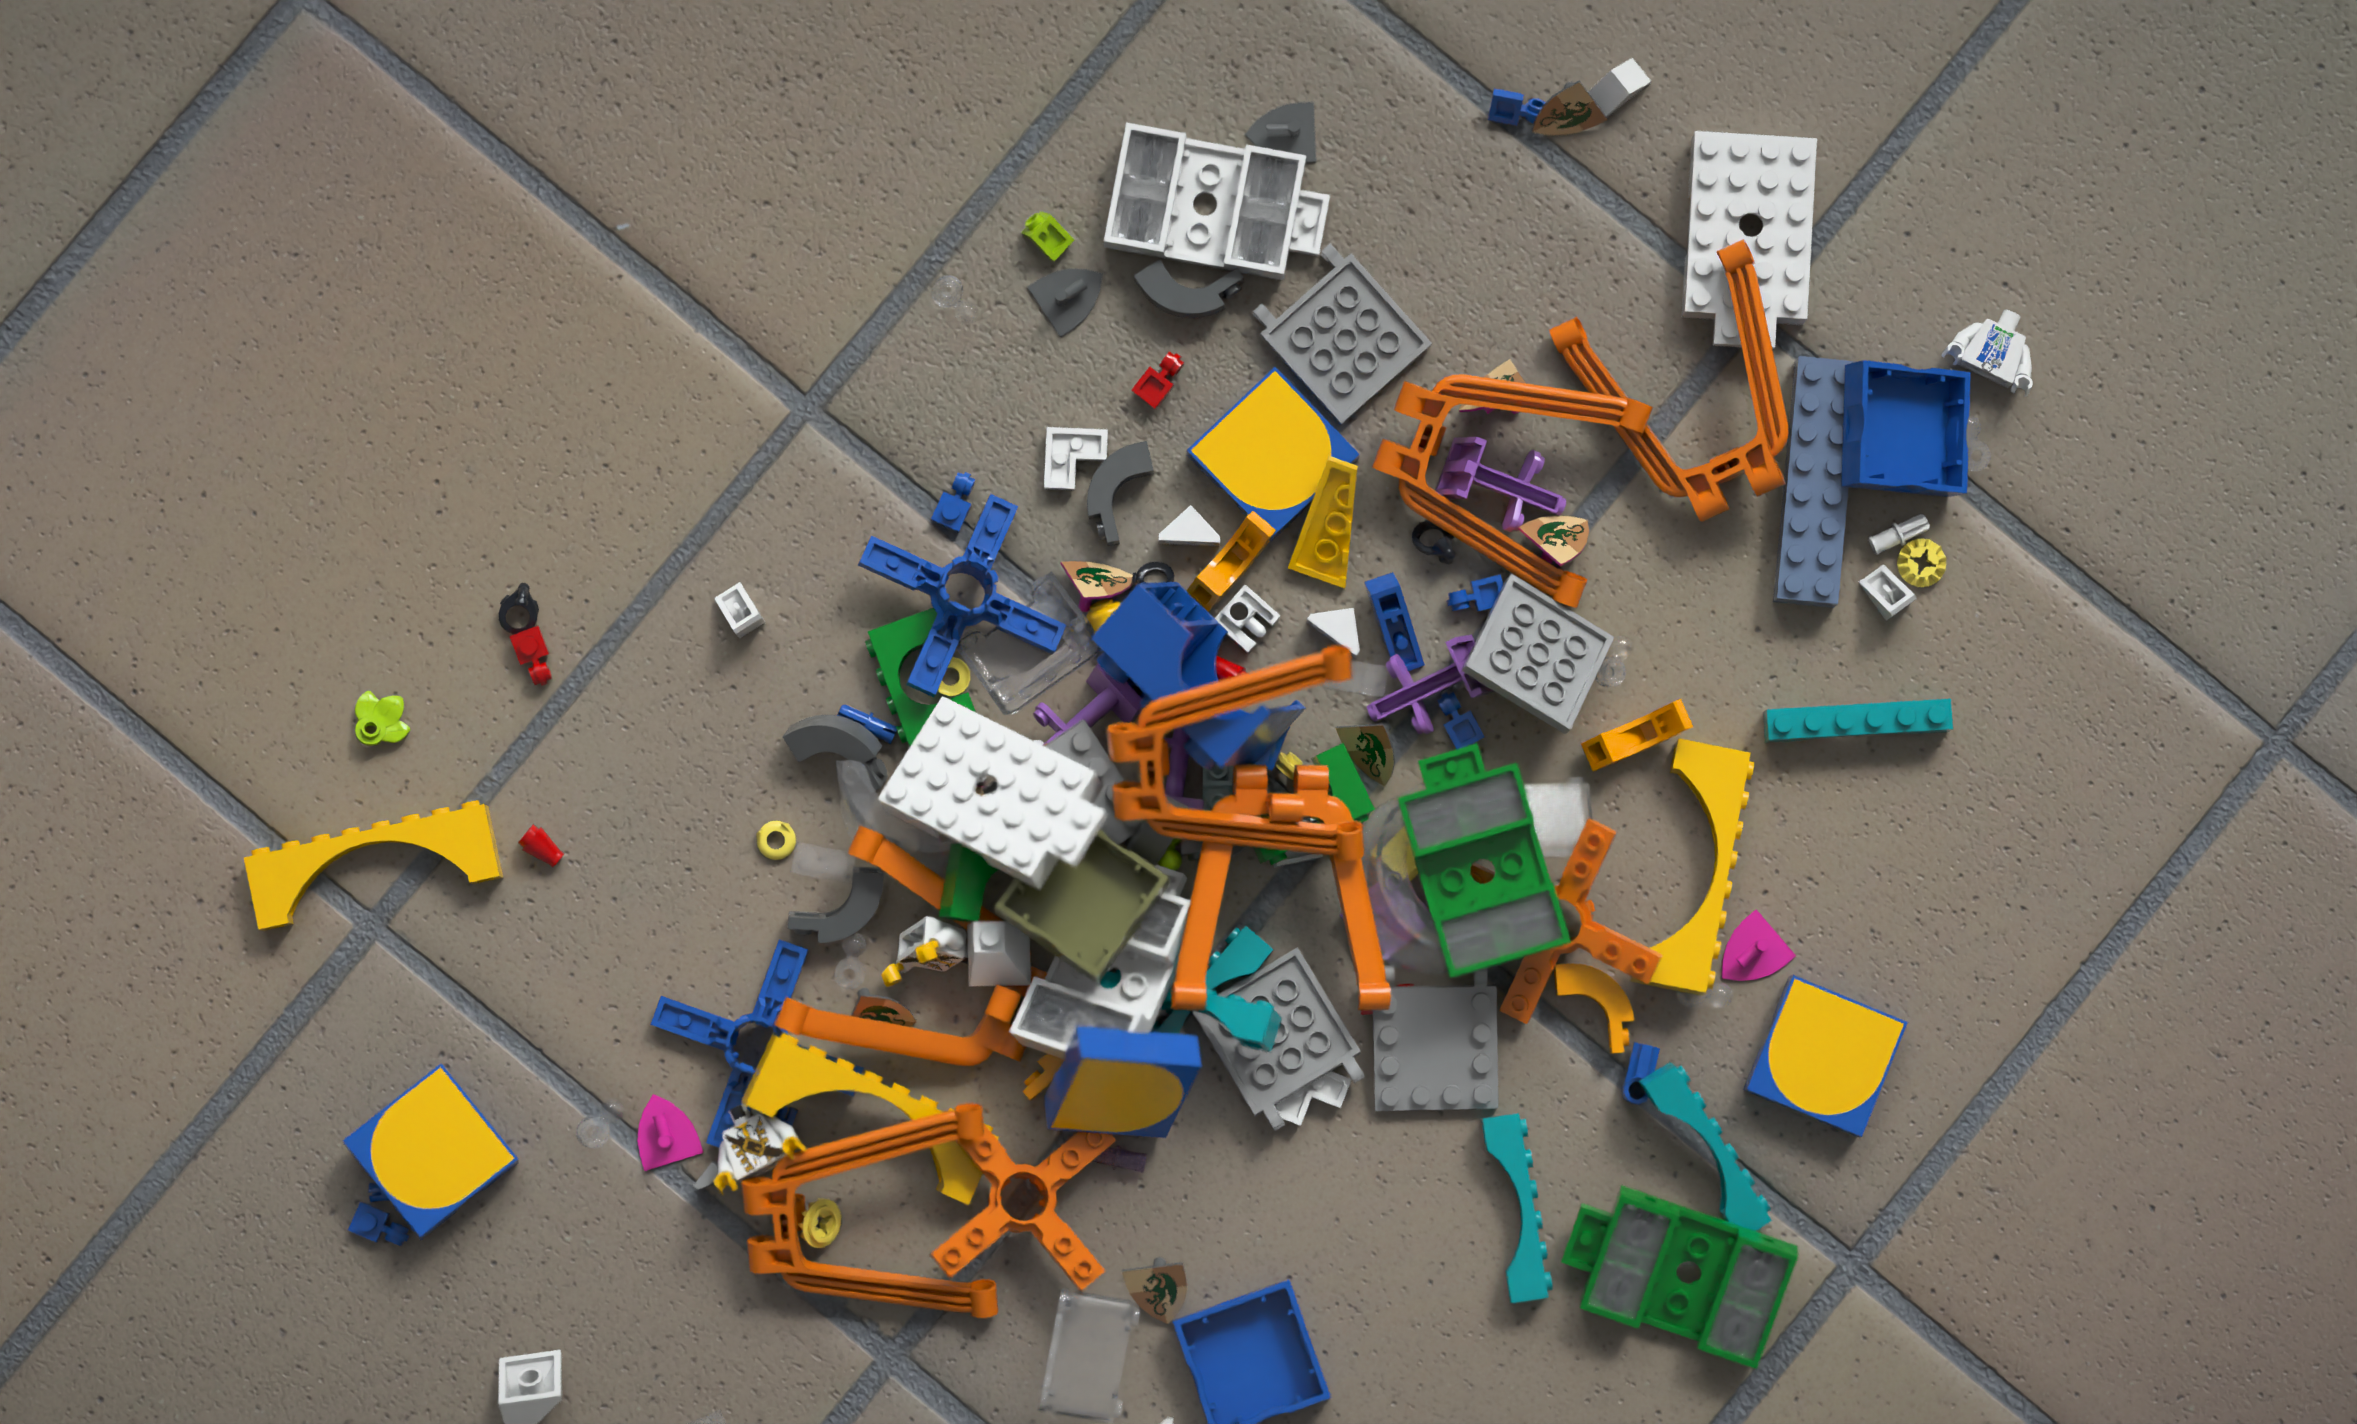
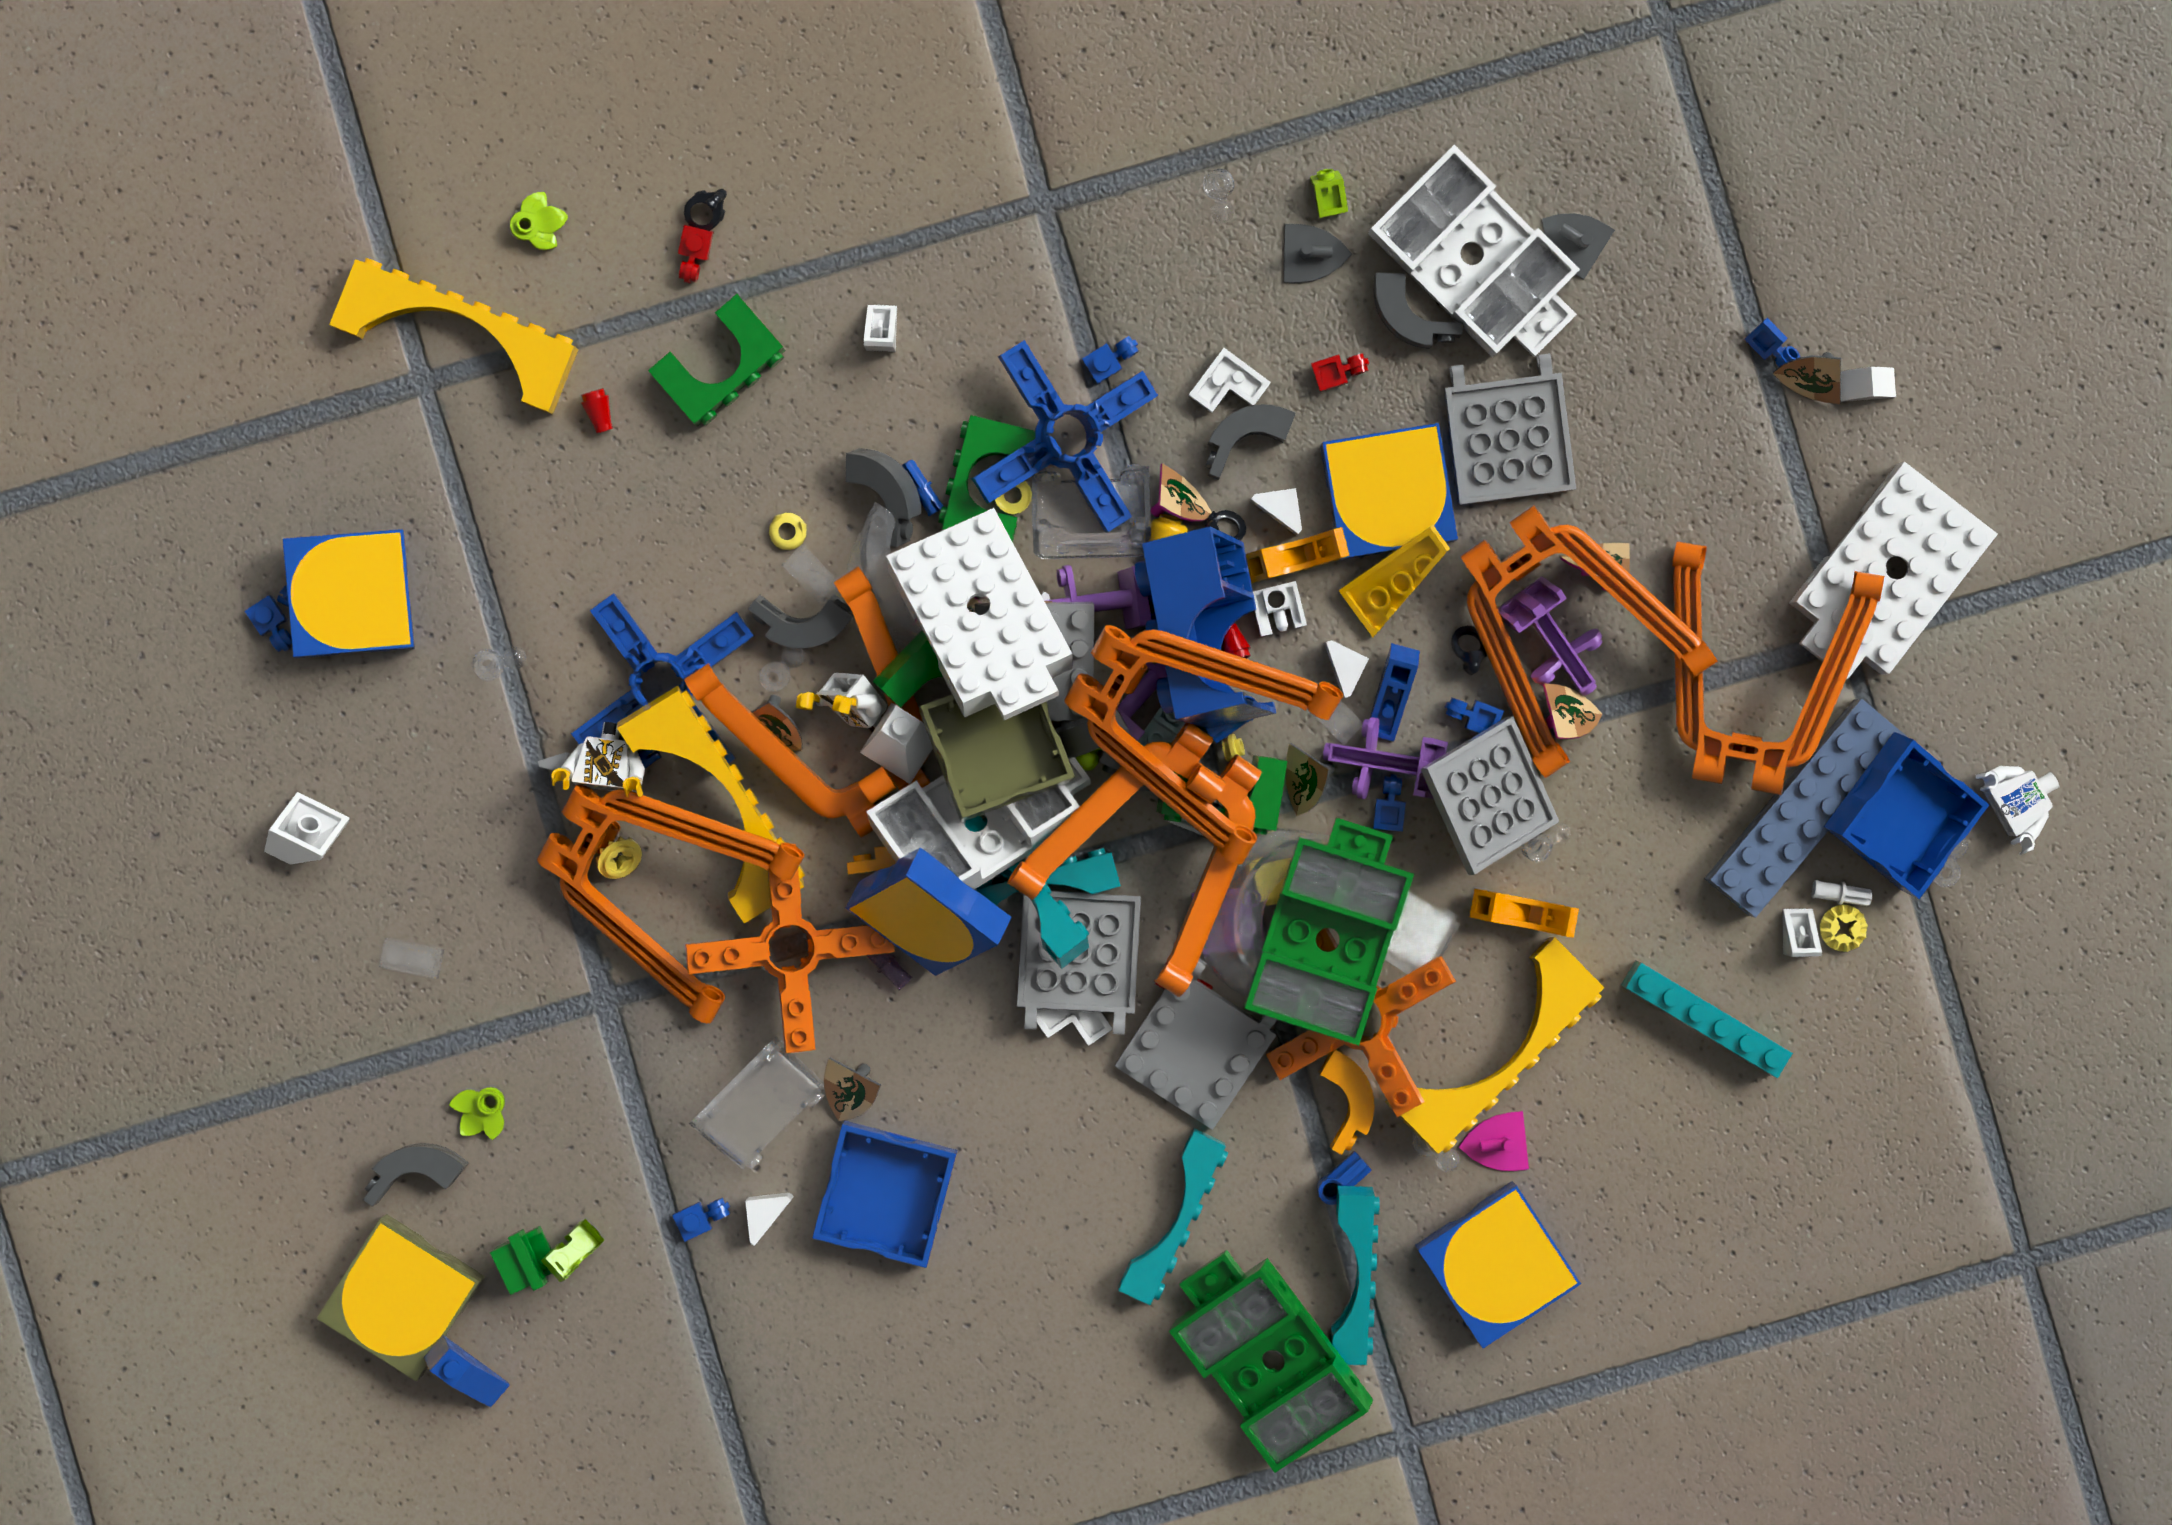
camera: 30 degrees right, 5 degrees up
(626, 775) = (702, 399): none -> green arch
(665, 1134) = (545, 705): dark pink shield -> none

